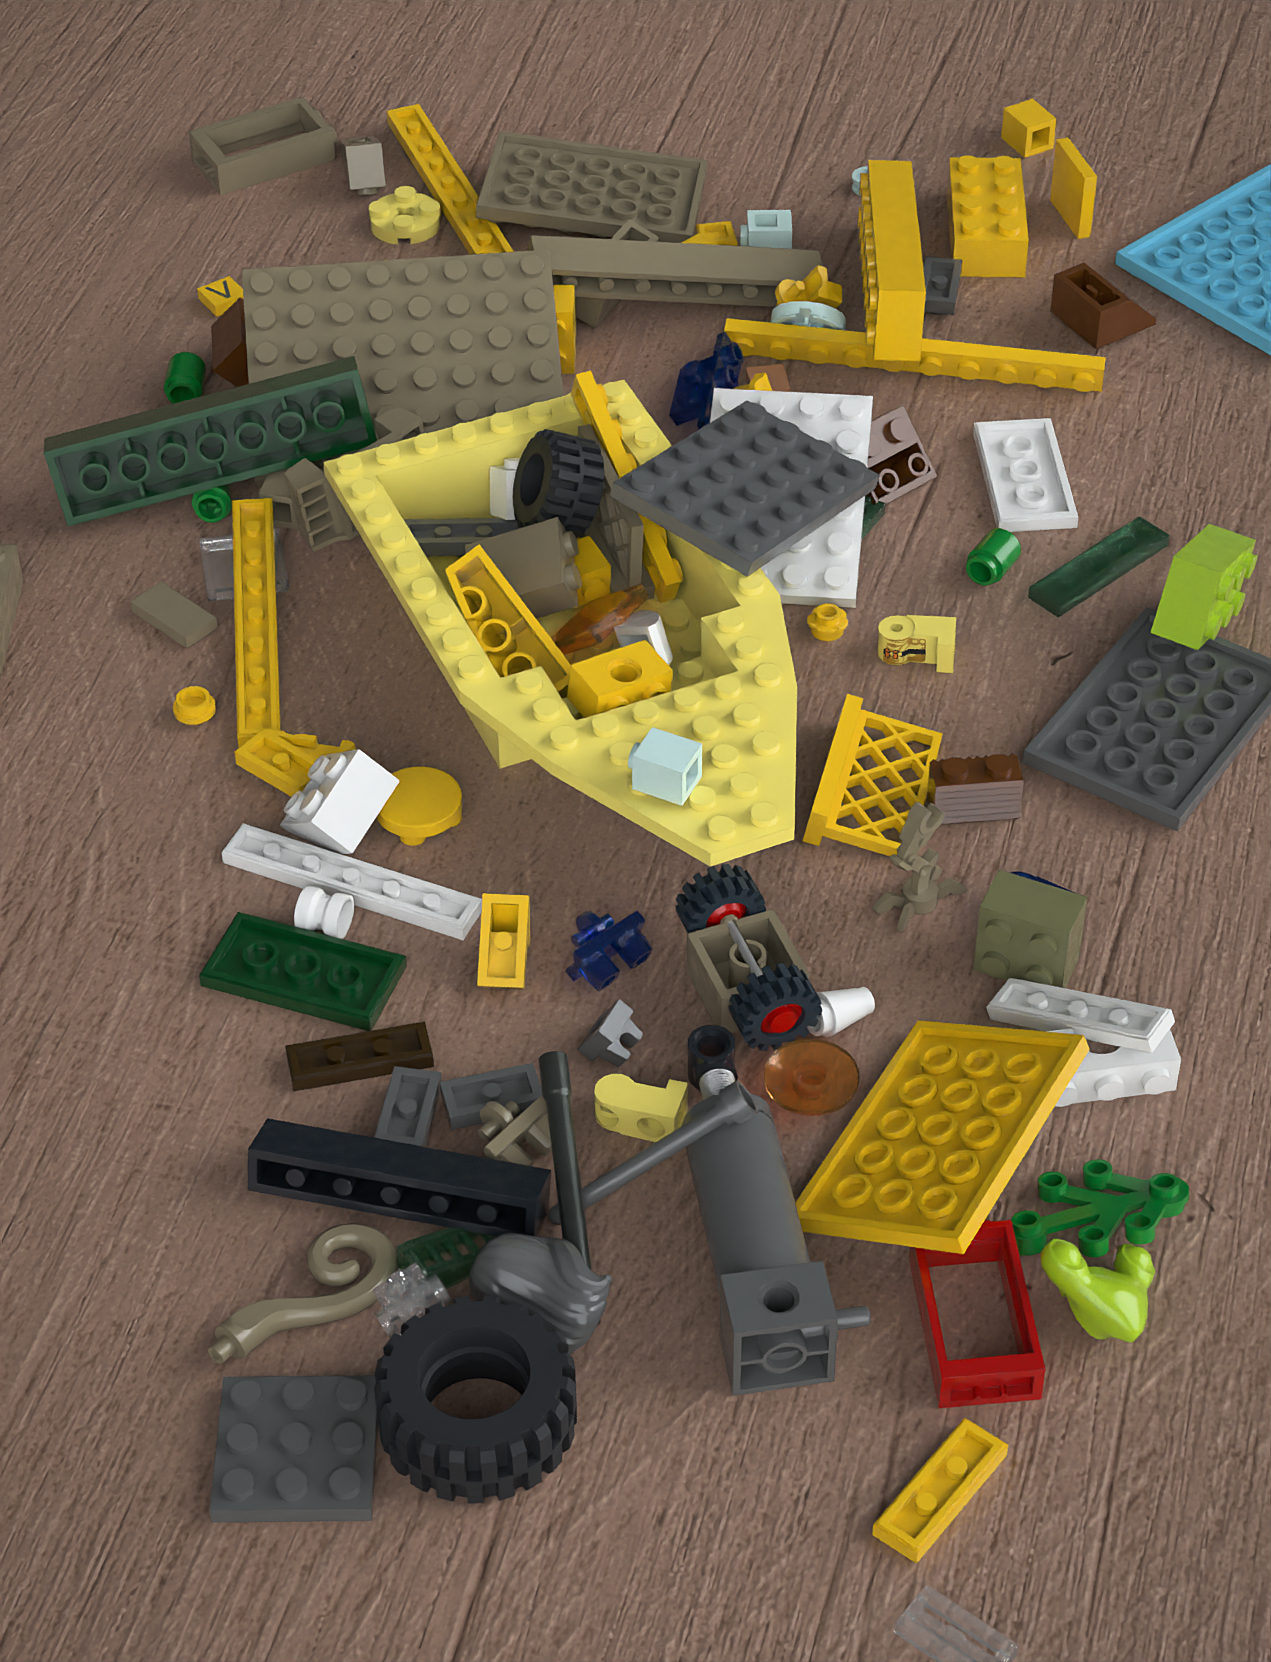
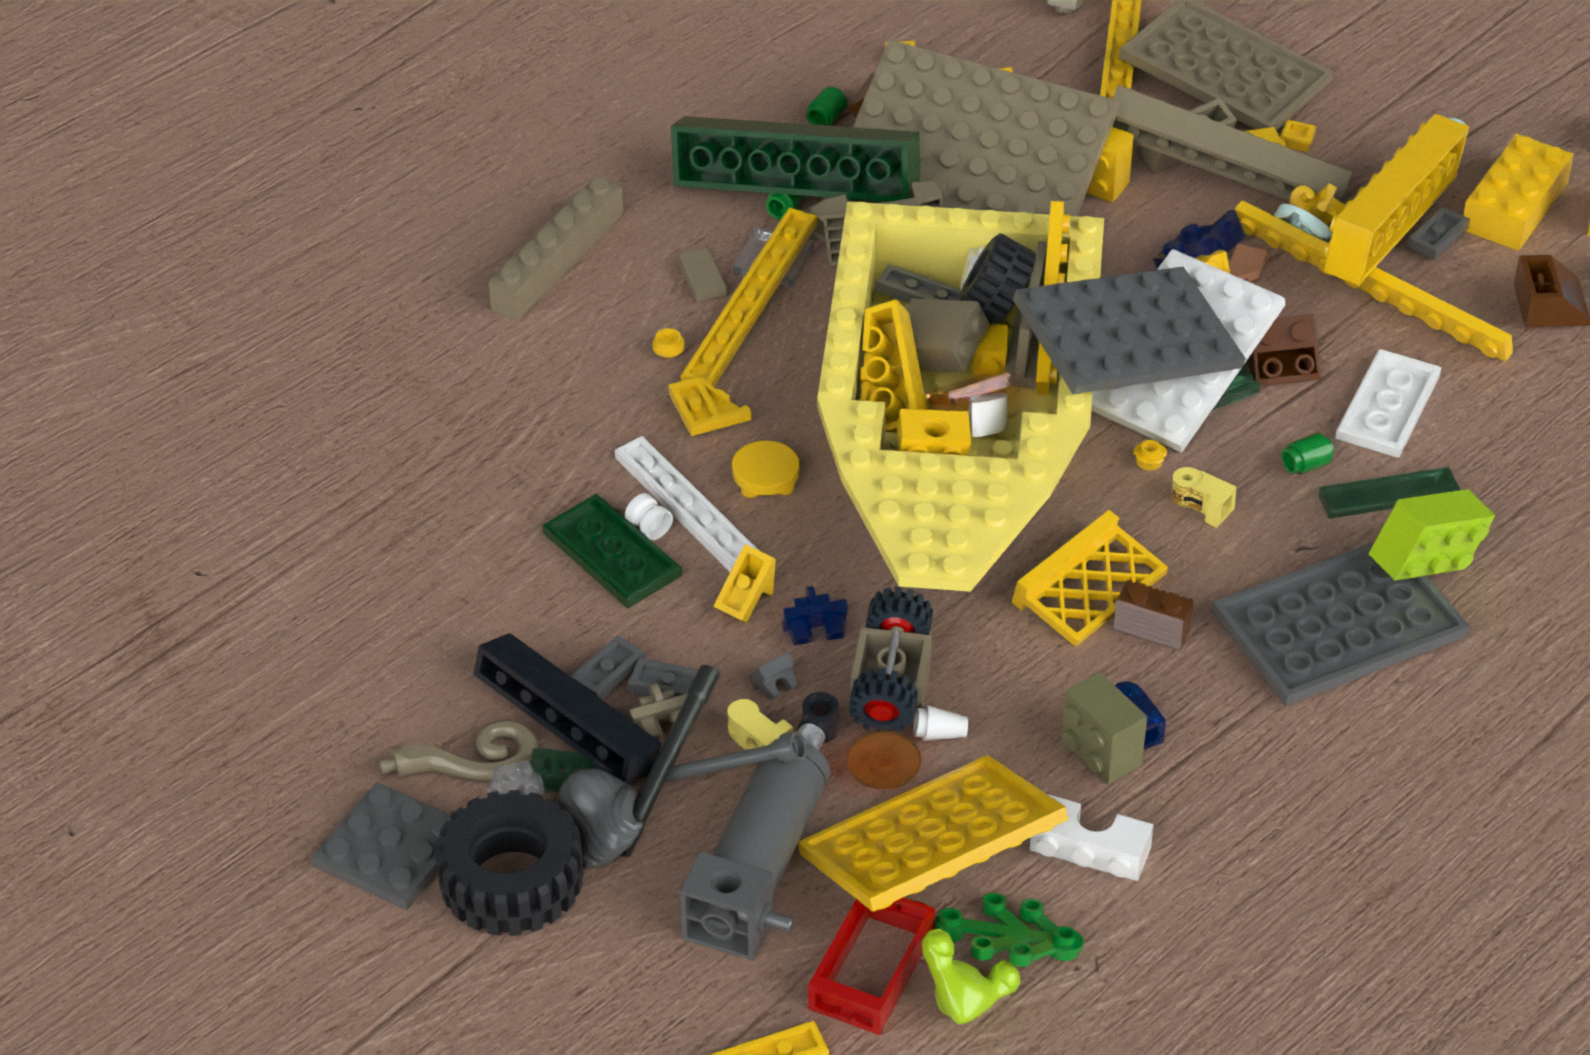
camera: 30 degrees right, 0 degrees up
(339, 801) = (708, 445): white slope -> none
(358, 1056) = (606, 620): dark brown tile -> none
(405, 216) = (1062, 38): light yellow plate -> none
(666, 766) = (904, 503): light aqua brick -> none
(767, 229) = (1334, 145): light aqua brick -> none
(920, 892) = (1060, 671): dark tan piece -> none
(1091, 1015) = (1097, 798): white tile -> none

